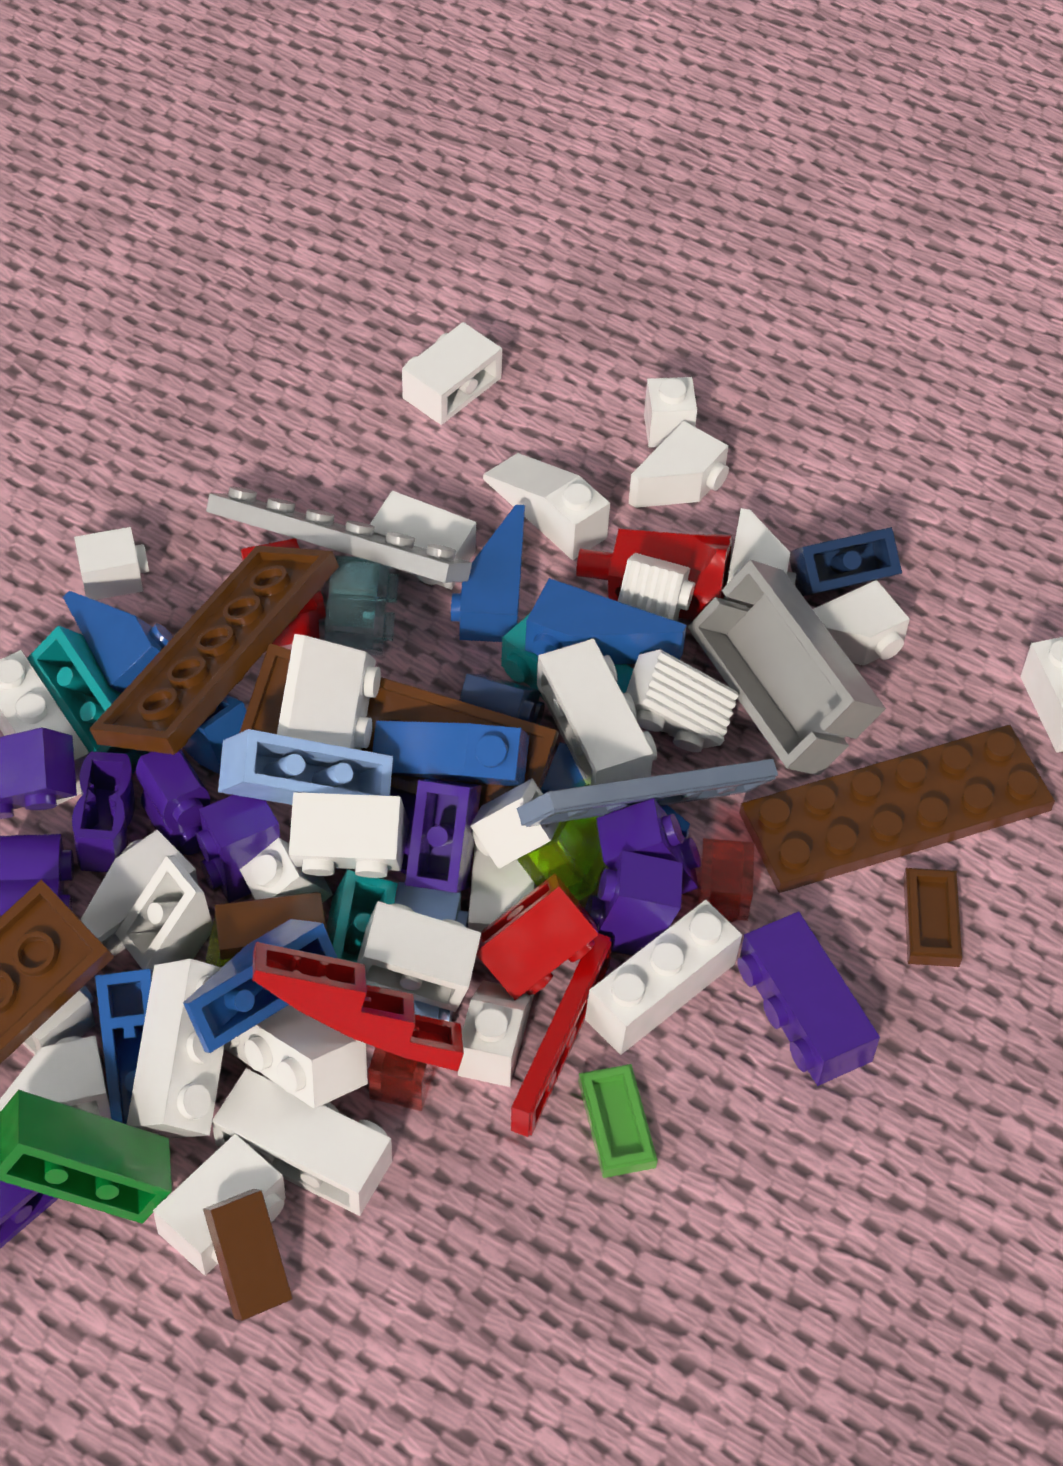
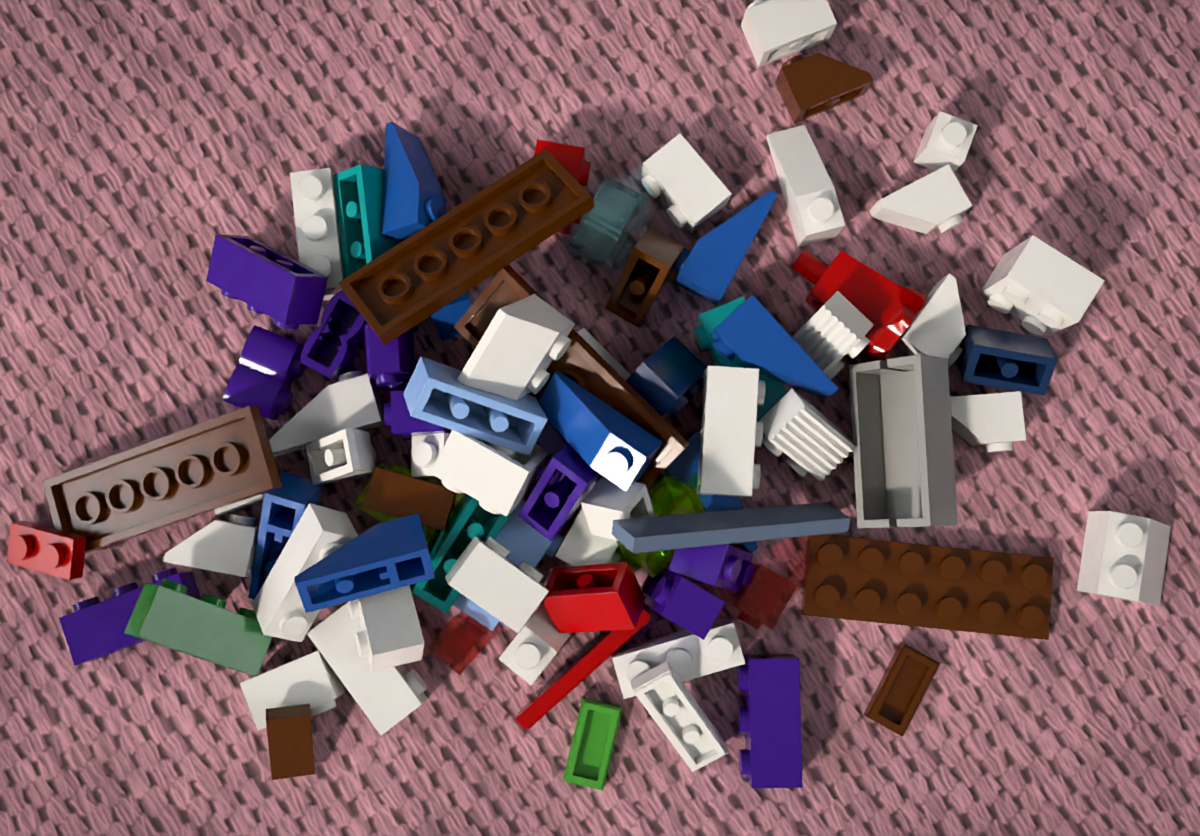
camera: 25 degrees right, 30 degrees up
(111, 563) = (438, 101): white brick -> none
(338, 996) = (422, 623): red slope -> none
(354, 539) = (618, 164): light grey plate -> none
(423, 637) = (644, 276): none -> reddish brown slope
(513, 410) = (818, 84): none -> reddish brown slope
(701, 1025) = (679, 716): none -> white tile
(838, 485) = (1041, 287): none -> white brick

